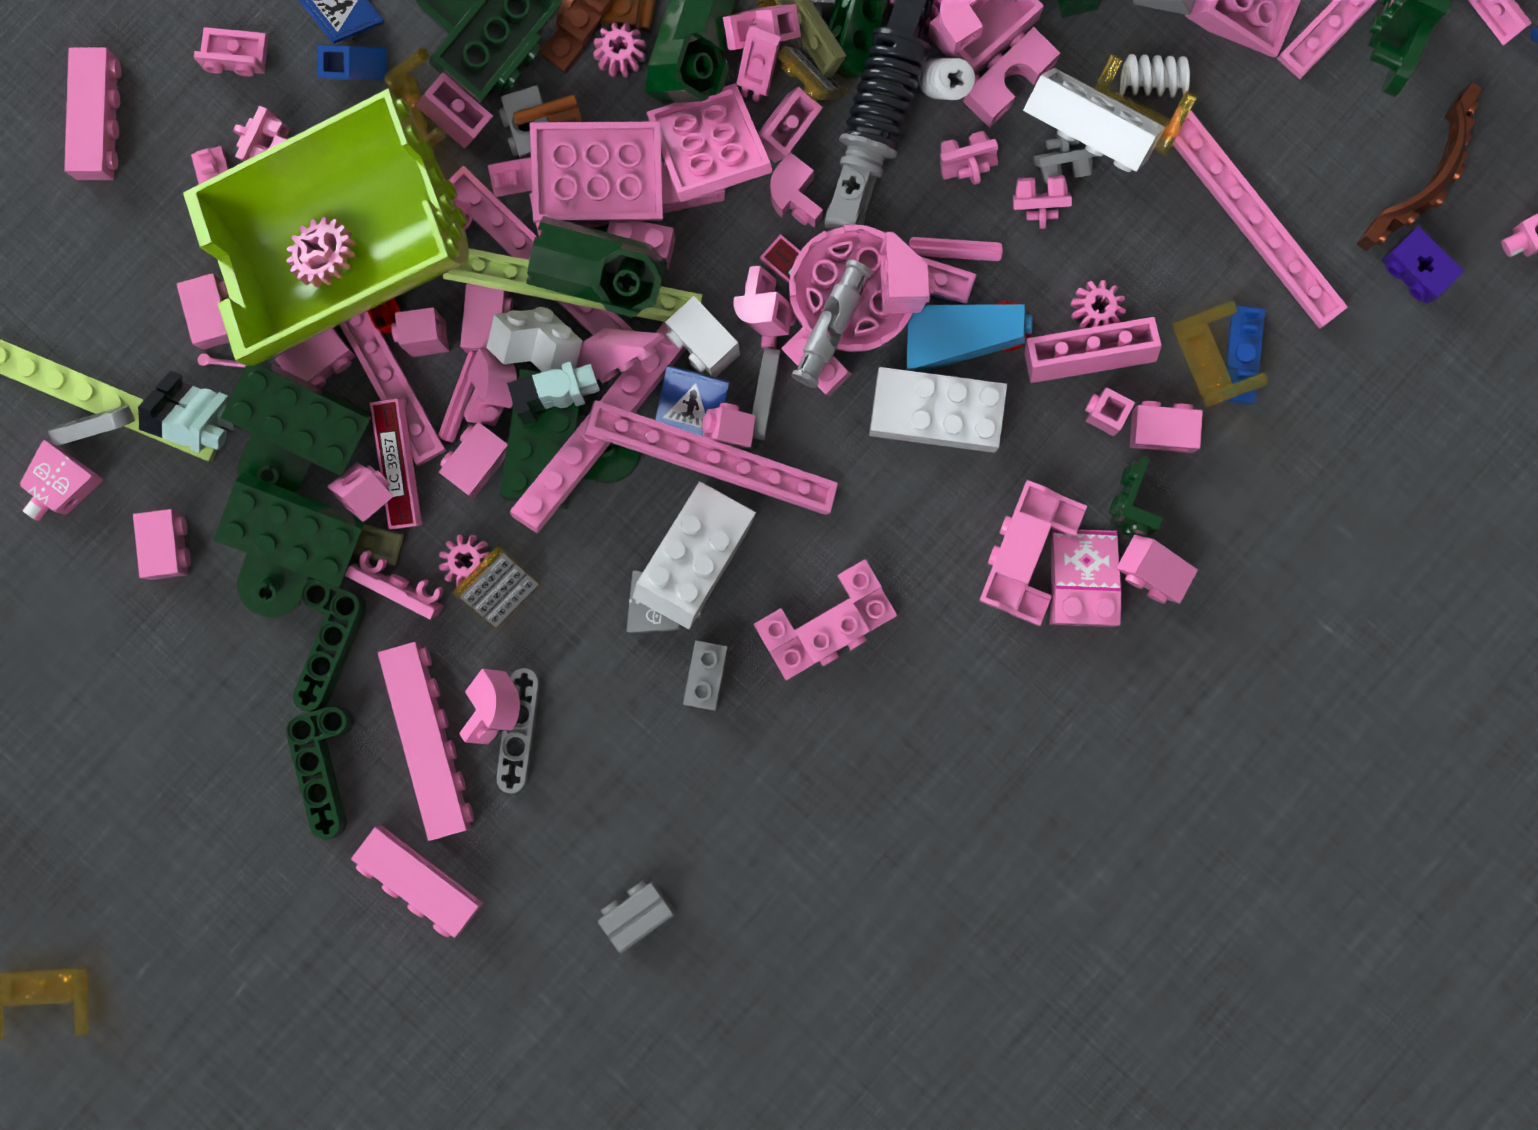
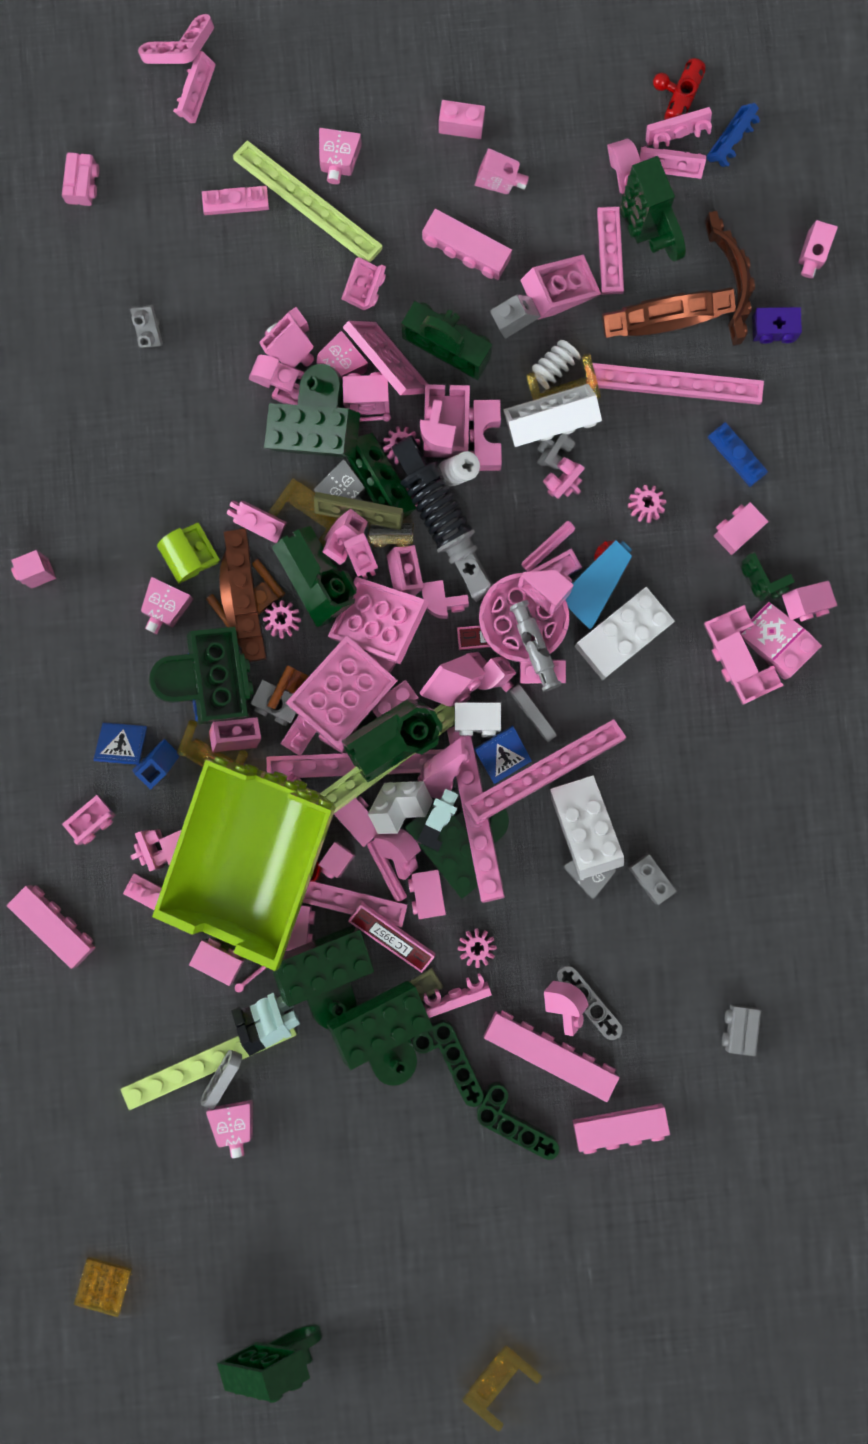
camera: 55 degrees left, 0 degrees up
(161, 544) = (318, 1100): bright pink brick -> none
(320, 252) = (253, 883): bright pink gear -> none
(361, 490) = (392, 968): bright pink brick -> none
(496, 587) = (506, 945): tile -> none
(717, 276) = (454, 681): none -> bright pink slope
(729, 426) = (535, 747): bright pink brick -> none
(830, 631) = (687, 793): bright pink bracket -> none
(969, 160) = (511, 496): bright pink hips -> none
(1092, 349) = (667, 527): bright pink brick -> none
(1108, 411) = (706, 548): bright pink brick -> none
(1205, 359) = (724, 475): clear yellow plate -> none
(1322, 140) = (668, 313): none -> copper piece

